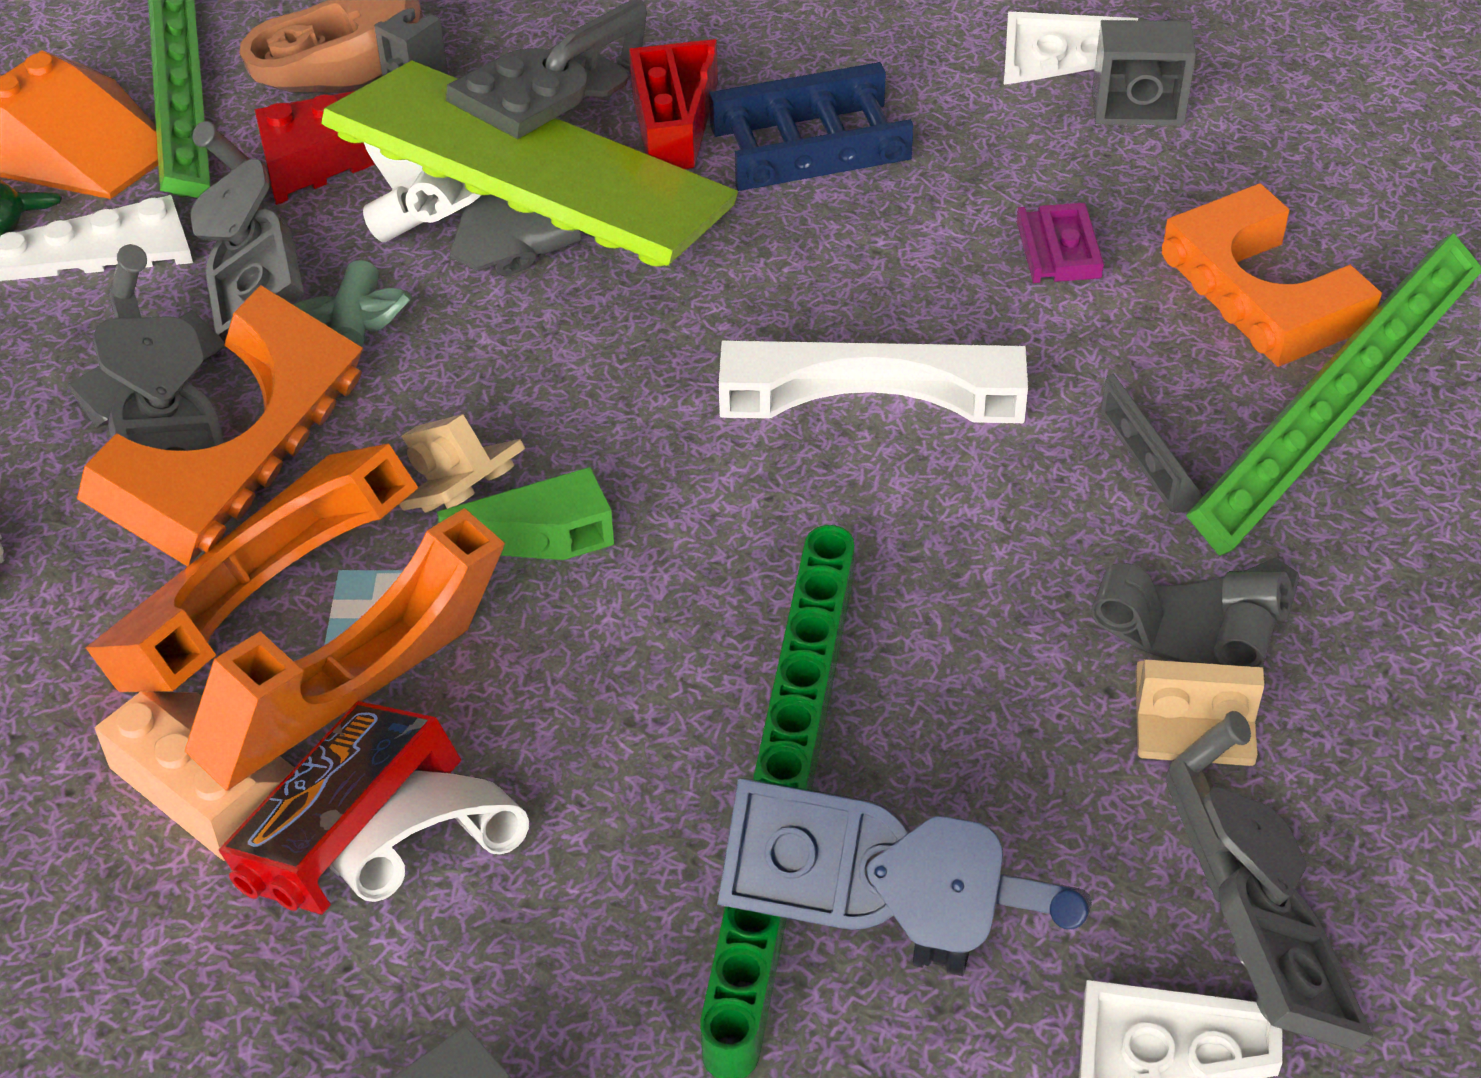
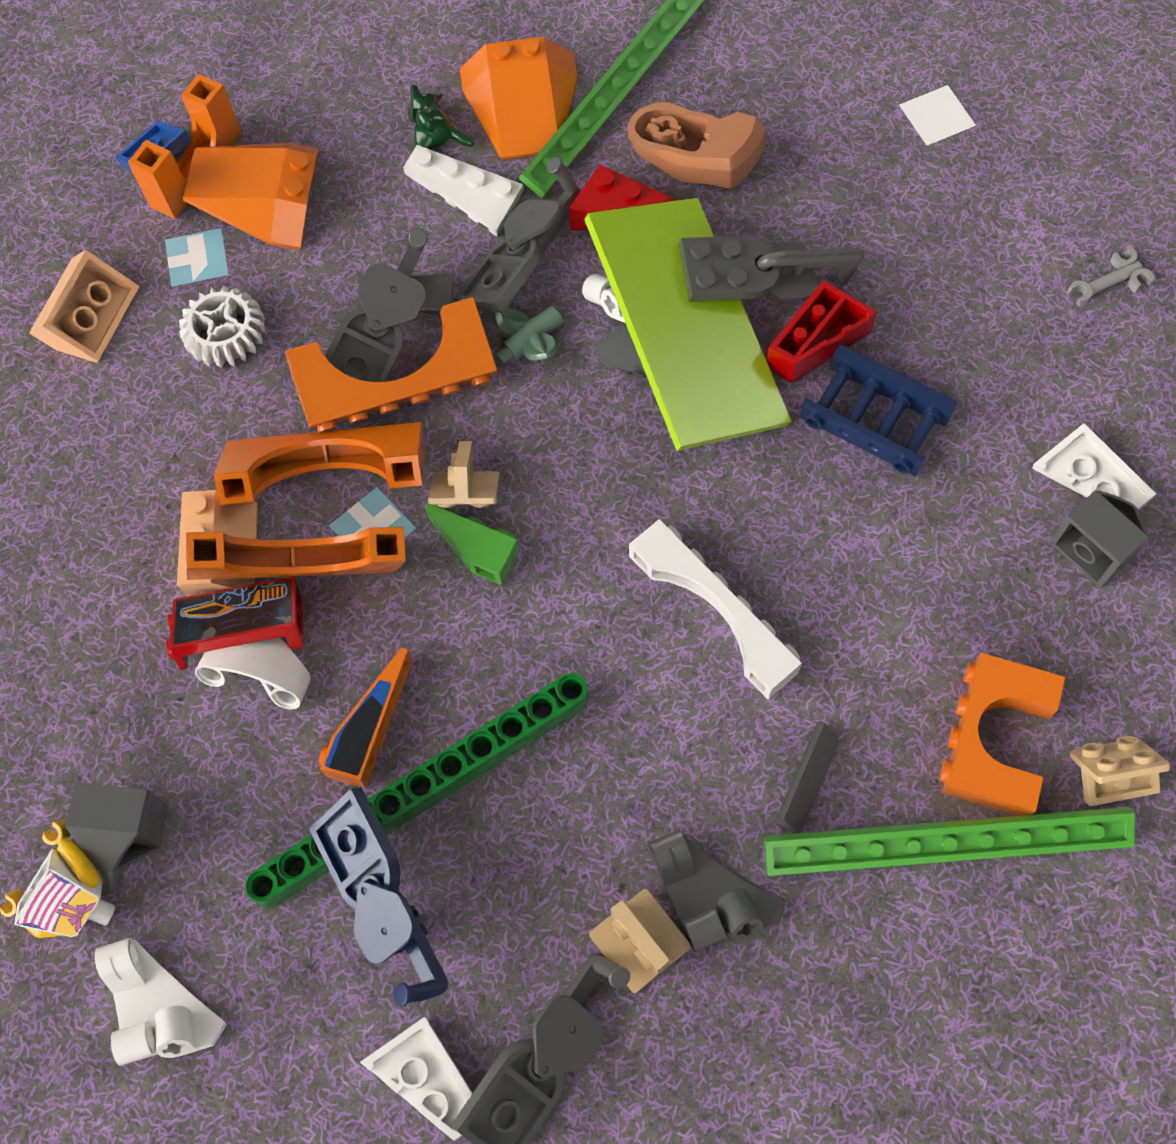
camera: 50 degrees right, 20 degrees up
(402, 42) = (714, 190): dark grey hinge -> none
(652, 805) = (360, 736): none -> slope
(1060, 243) = (918, 608): magenta plate -> none
(1395, 221) = (1119, 770): none -> tan bracket

